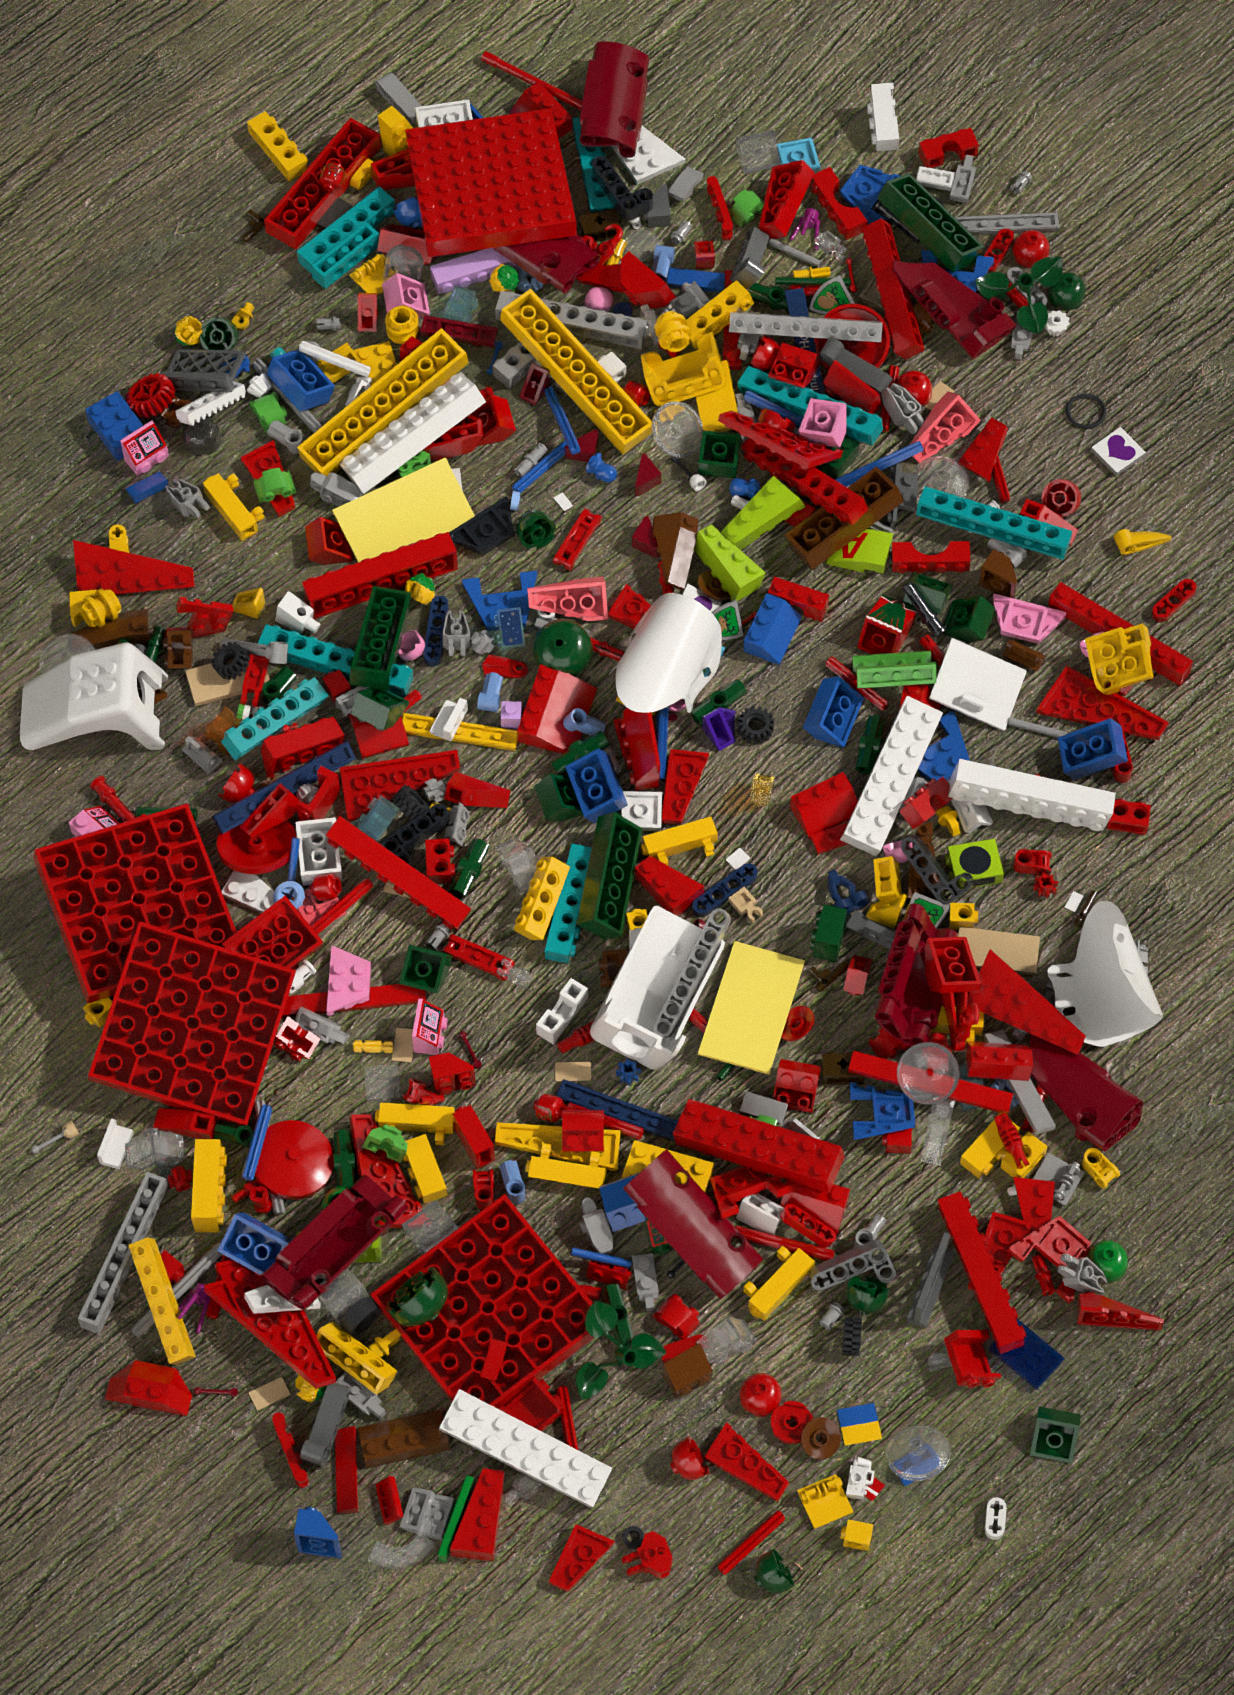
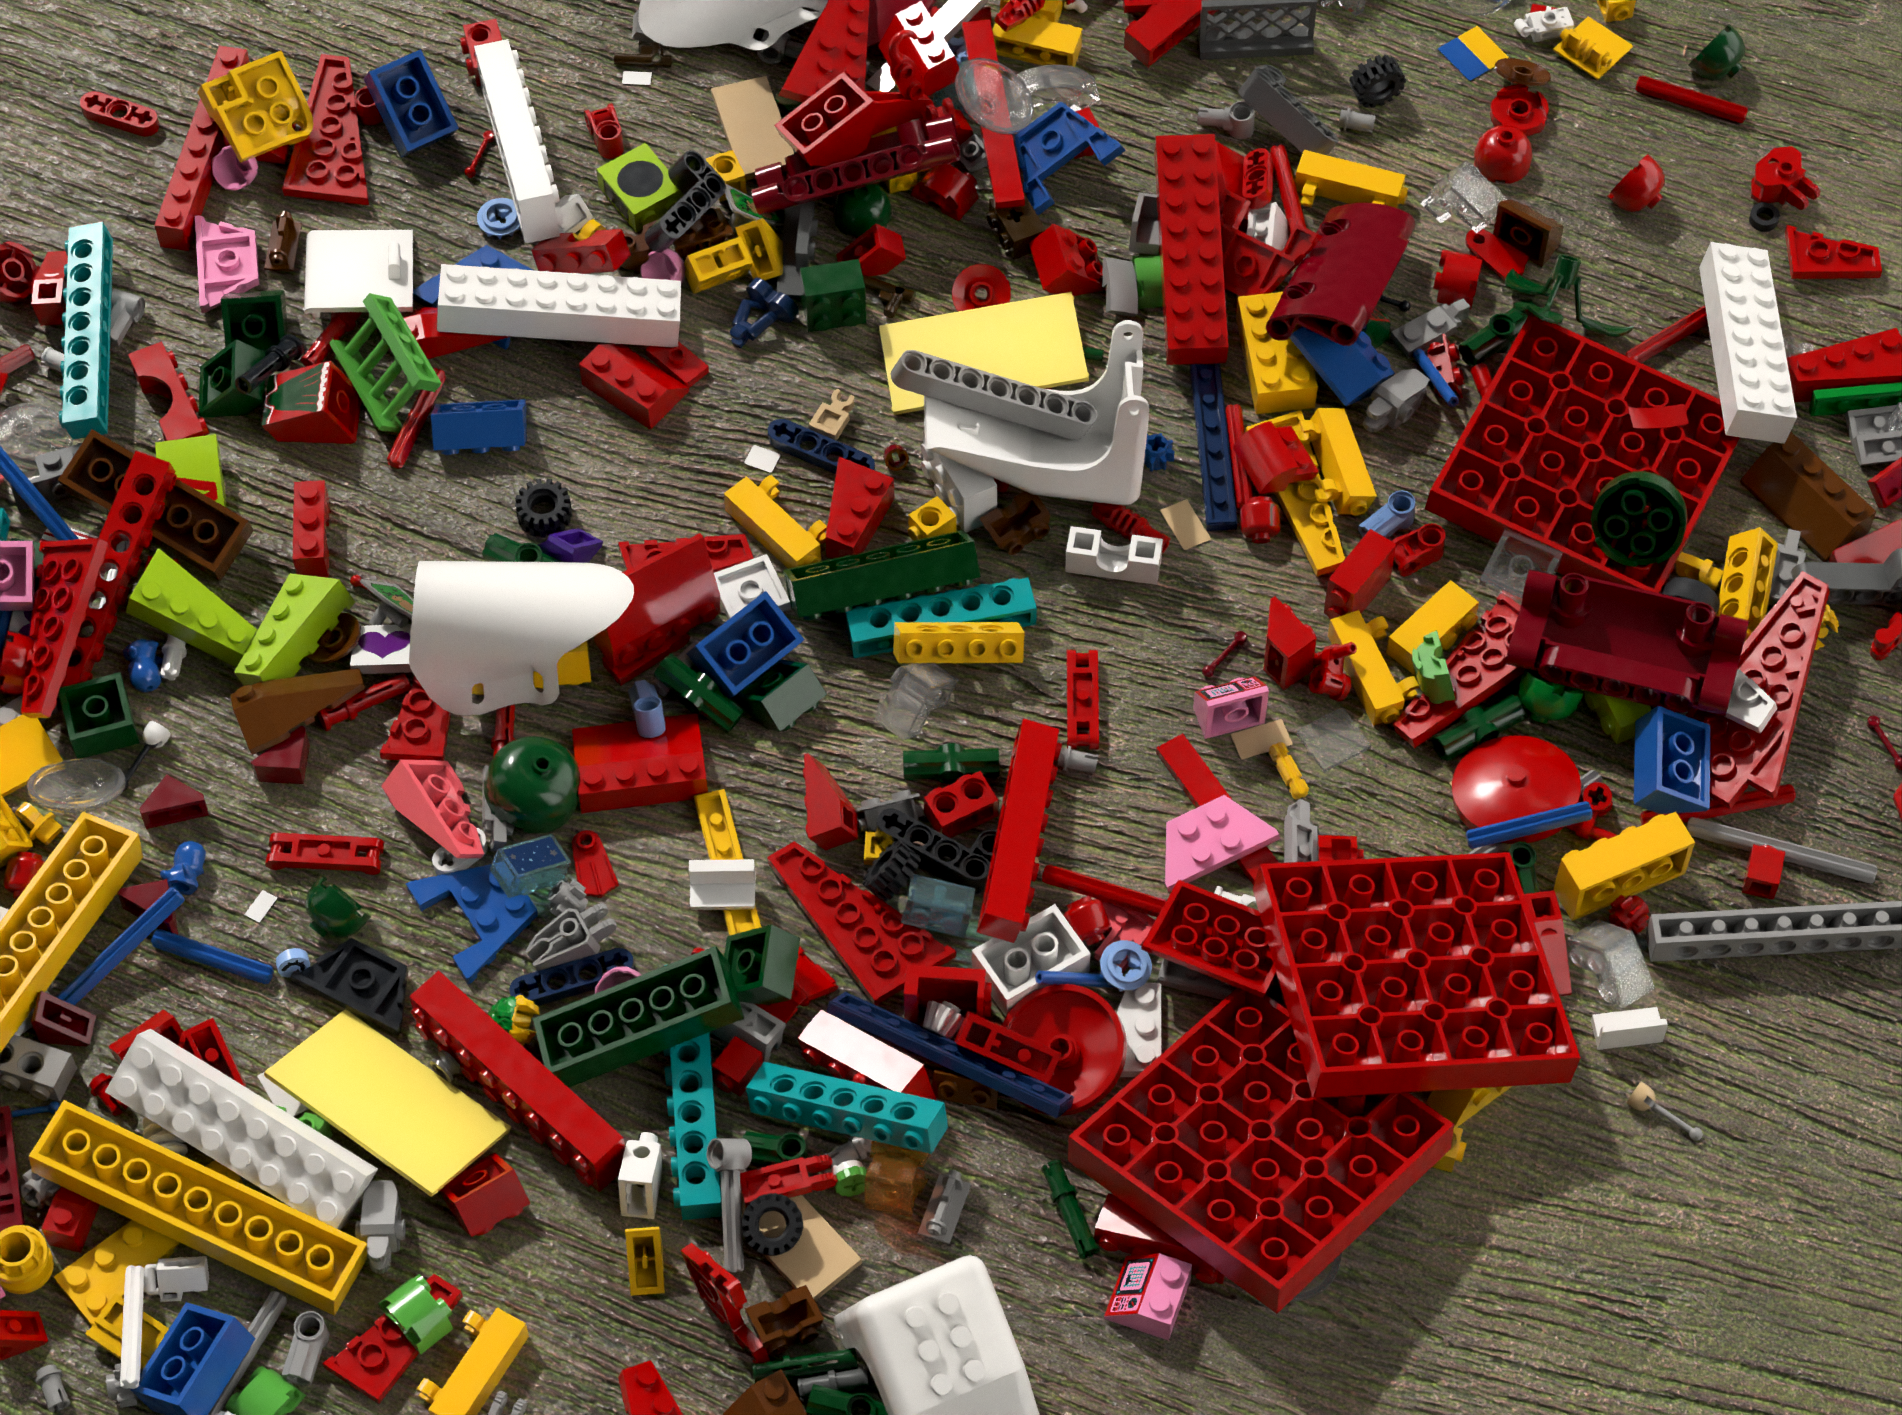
camera: 115 degrees left, 5 degrees down
(109, 796) = (1084, 1306): red pin -> none
(162, 1301) = (1822, 840): yellow brick -> none
(198, 1297) = (1776, 816): magenta plant -> none
(238, 785) = (977, 1126): red cylinder -> none
(269, 1393) = (1846, 682): tan sticker -> none
(425, 969) = (1140, 746): dark green slope -> none
(434, 790) = (850, 856): light grey gear -> none
(489, 697) = (657, 854): medium blue piece -> none
(511, 715) = (676, 810): lavender brick -> none
(518, 976) = (1087, 631): clear plate -> none
(530, 459) = (206, 973): light grey pin -> none
(535, 1405) = (1682, 363): red panel -> none
(740, 1460) = (1599, 143): red wing -> none
(762, 789) = (650, 453): clear yellow brick -> none
(772, 629) = (375, 549): blue slope -> none
(866, 1295) = (1313, 83): dark green cylinder -> none
(869, 744) = (511, 365): dark green piece -> none
(998, 575) = (171, 299): reddish brown slope -> none
(1036, 728) = (392, 194): light grey piece -> none
(1045, 885) = (633, 104): red gear -> none
(1133, 542) = (38, 179): yellow piece -> none

